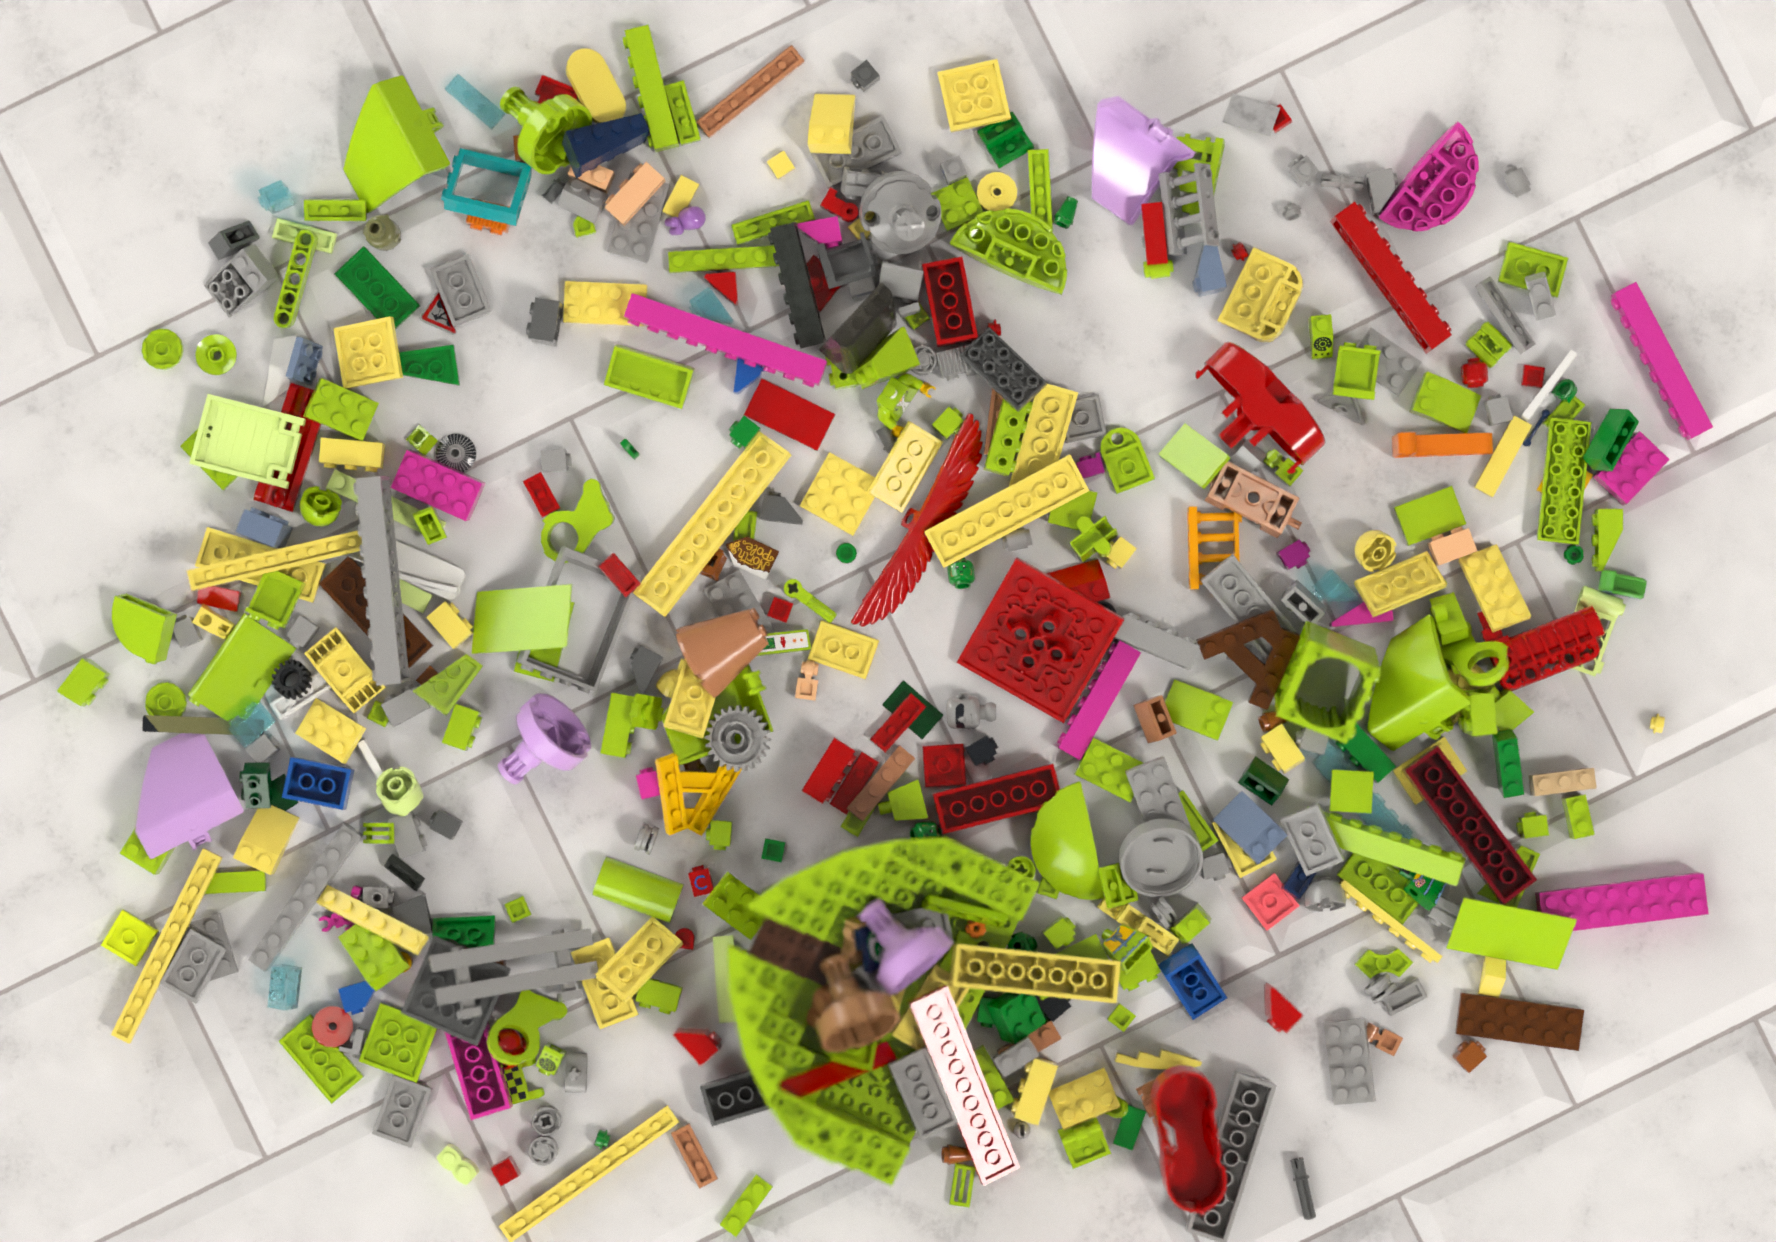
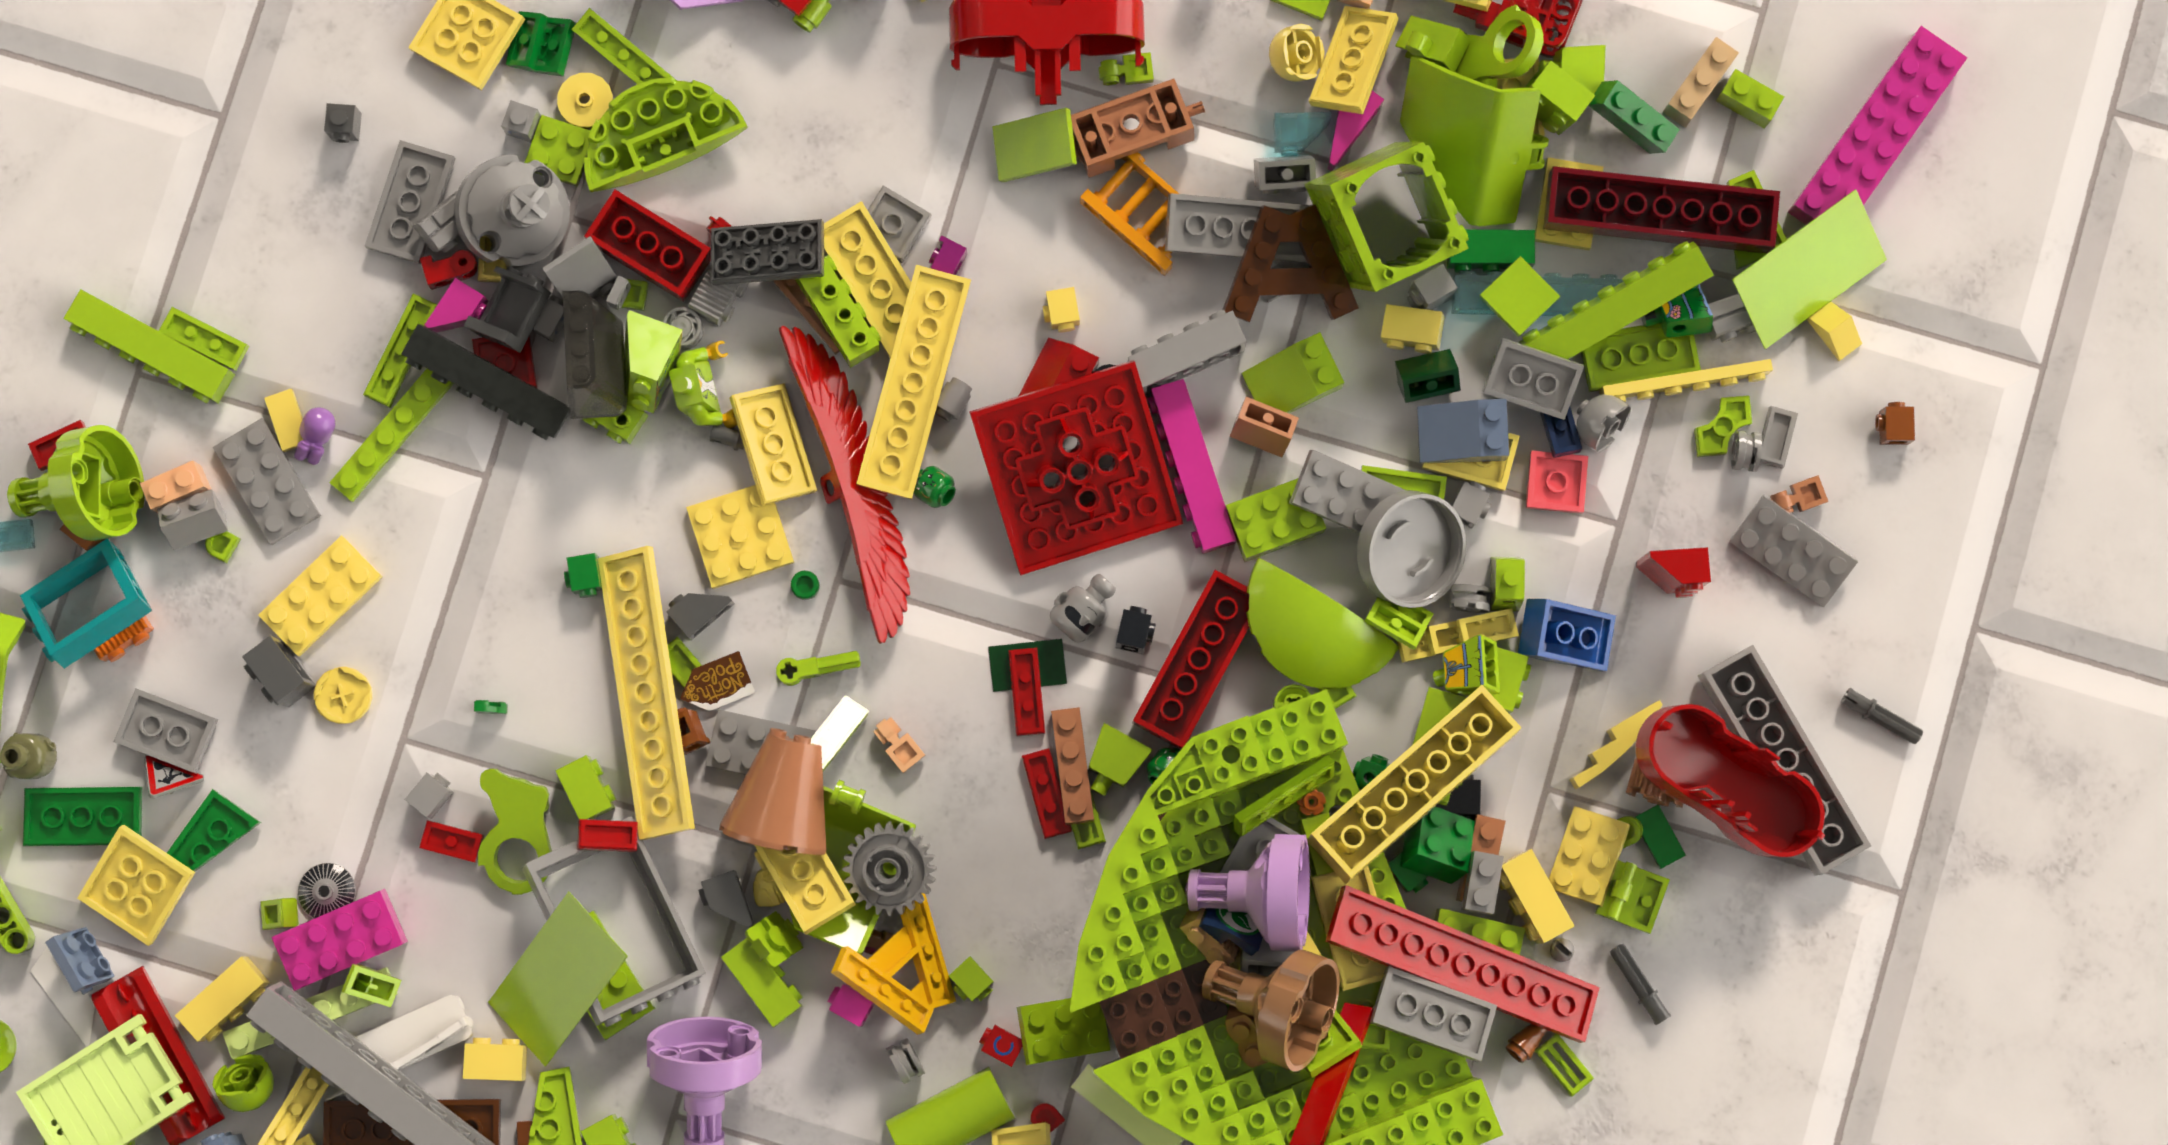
camera: 50 degrees left, 5 degrees down
(340, 409) = (165, 967): lime brick -> none
(414, 596) = (431, 1072): yellowish green tile -> none
(554, 190) = (156, 541): dark grey pin -> none
(564, 365) = (342, 695): none -> light yellow tile
(595, 85) = (92, 400): light yellow tile -> none
(603, 141) = (152, 442): dark blue wedge -> none
(633, 539) = (585, 788): none -> lime brick
(634, 193) = (236, 460): light nougat brick -> none
(649, 376) = (436, 619): lime slope -> none
(709, 307) = (425, 492): clear light blue slope -> none
(724, 283) = (416, 455): red slope -> none
(725, 340) = (470, 505): dark pink brick -> none
(746, 375) = (525, 511): blue slope -> none
(750, 91) = (248, 252): nougat tile -> none
(773, 850) = (1039, 940): green tile -> none
(780, 165) = (351, 289): light yellow tile -> none
(780, 609) = (799, 705): red plate -> none
(789, 414) = (610, 512): red tile -> none
(829, 771) = (1011, 805): red brick -> none
(831, 124) = (359, 199): light yellow slope -> none
(843, 649) = (900, 678): light yellow tile -> none
(944, 765) = (1113, 684): red tile -> none
(948, 422) = (770, 359): lime brick -> none
(1041, 1187) = (1640, 984): none -> dark grey axle
(1060, 932) = (1394, 721): lime brick -> none
(1066, 213) = (671, 50): green cone -> none
(1070, 512) = (980, 317): lime tile -> none
(1093, 538) = (1023, 321): lime piece -> none
(1121, 1017) = (1538, 741): lime plate -> none
(1125, 462) = (976, 220): lime tile -> none
(1249, 457) = (1086, 92): light grey brick -> none
(1269, 721) = (1373, 311): dark orange cone -> none
(1294, 554) = (1227, 138): magenta brick -> none
(1519, 1021) = (1905, 345): reddish brown plate -> none
(1532, 825) = (1718, 151): lime brick -> none

